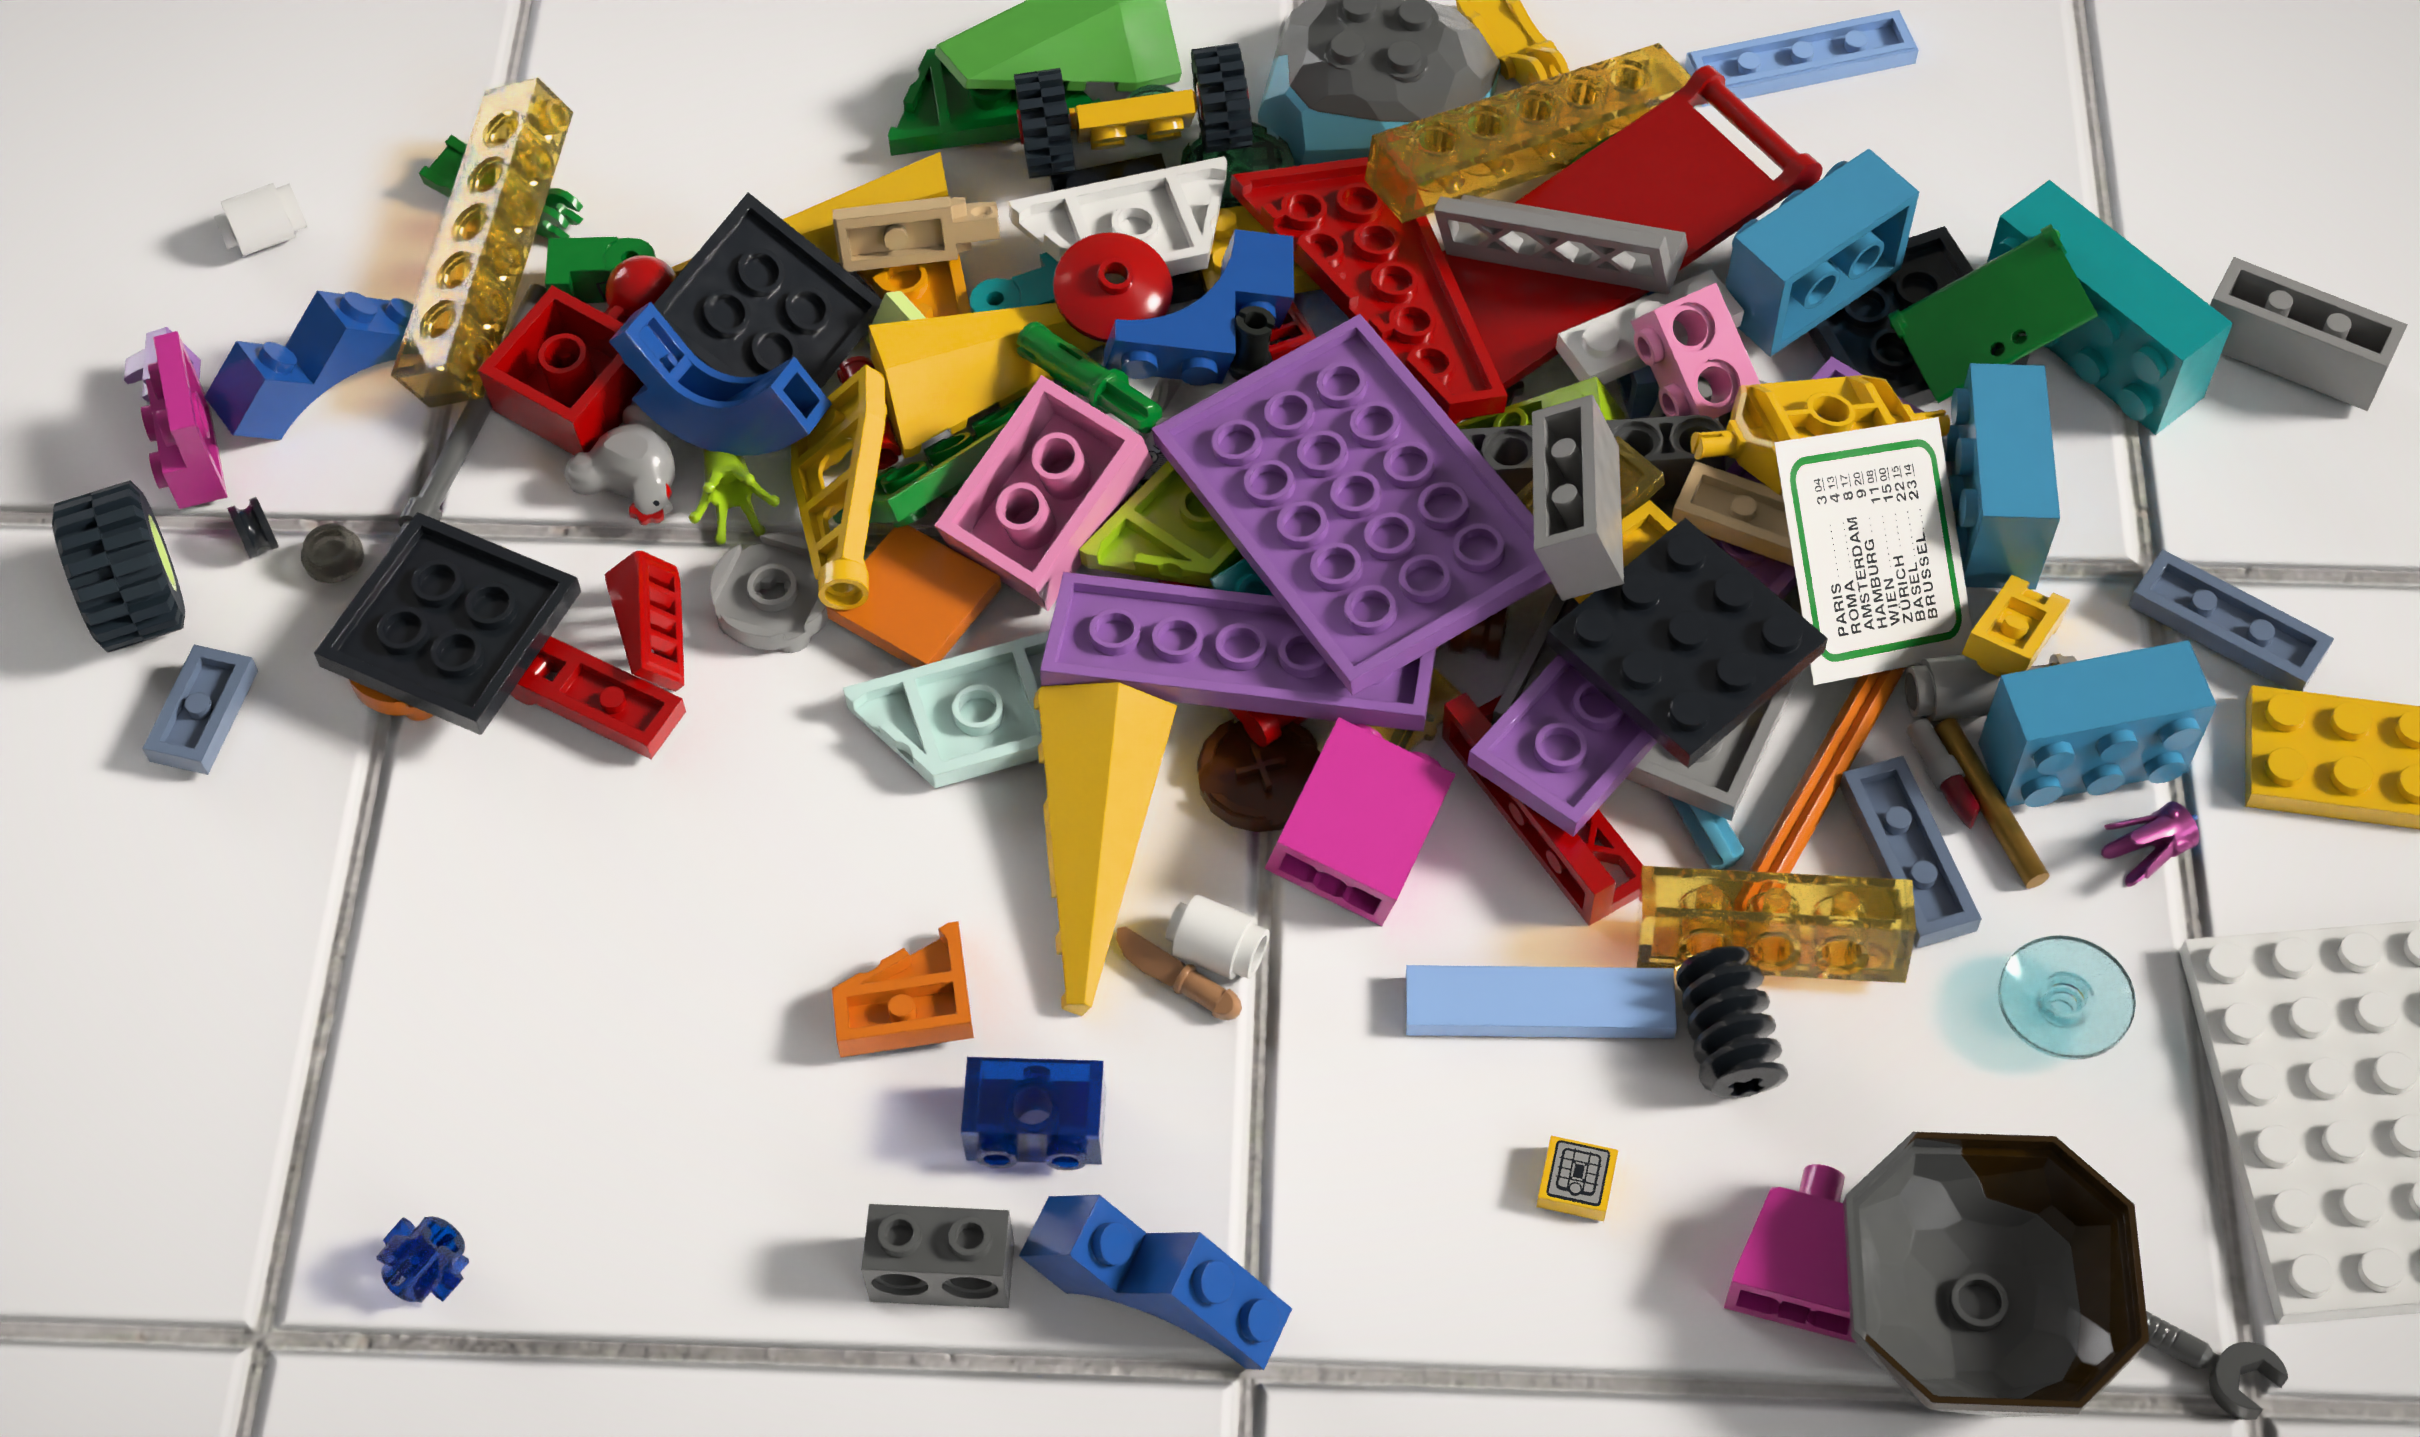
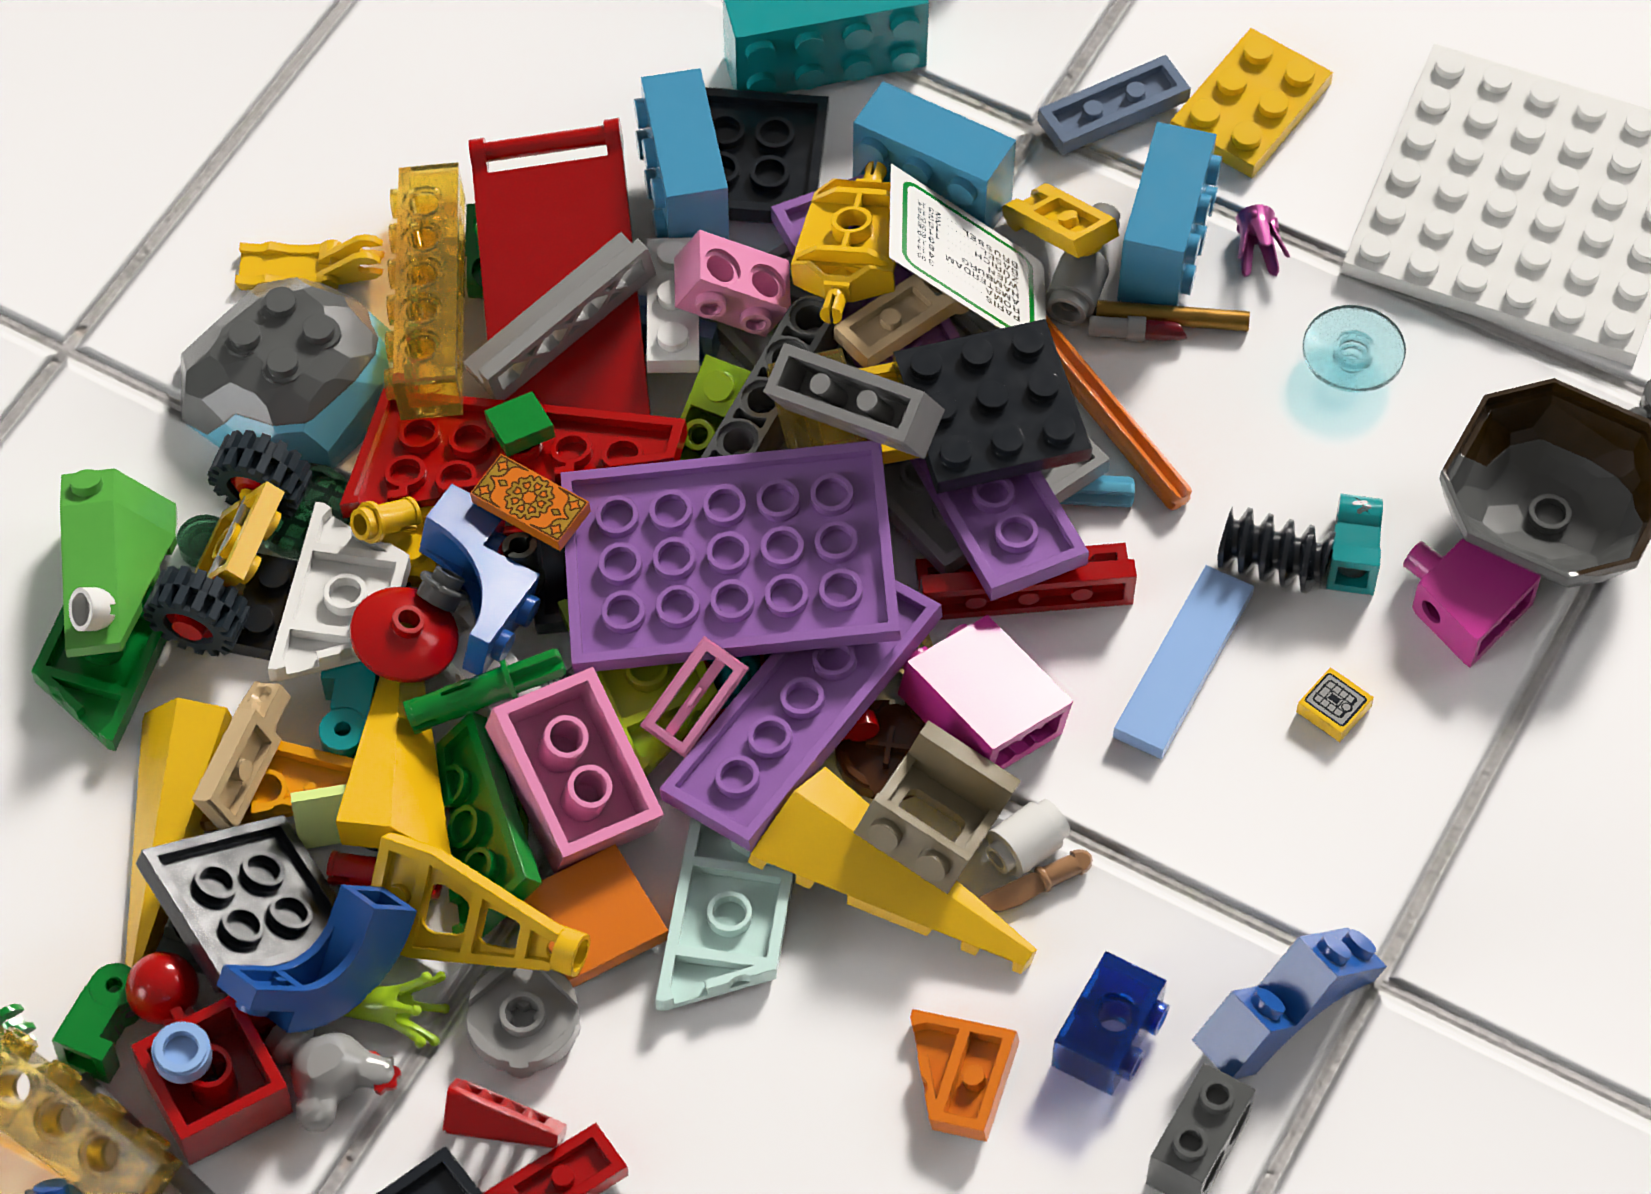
camera: 65 degrees left, 0 degrees up
(558, 323) = (181, 1052): none -> light blue tile
(974, 35) = (90, 609): none -> white hinge
(1175, 571) = (722, 658): none -> bright pink tile
(1176, 288) = (442, 588): none -> dark grey plate
(1229, 208) = (374, 520): none -> yellow pin
(1234, 830) = (951, 781): none -> dark tan window
(1304, 303) = (530, 502): none -> tile
(1409, 264) = (519, 424): none -> green tile
(1783, 919) = (1215, 476): clear yellow brick -> none
(1802, 1109) = (1356, 544): none -> teal leg
(1810, 55) = (453, 90): light blue tile -> none
(1910, 848) = (1190, 380): sand blue plate -> none
(2016, 293) = (798, 106): green door -> none

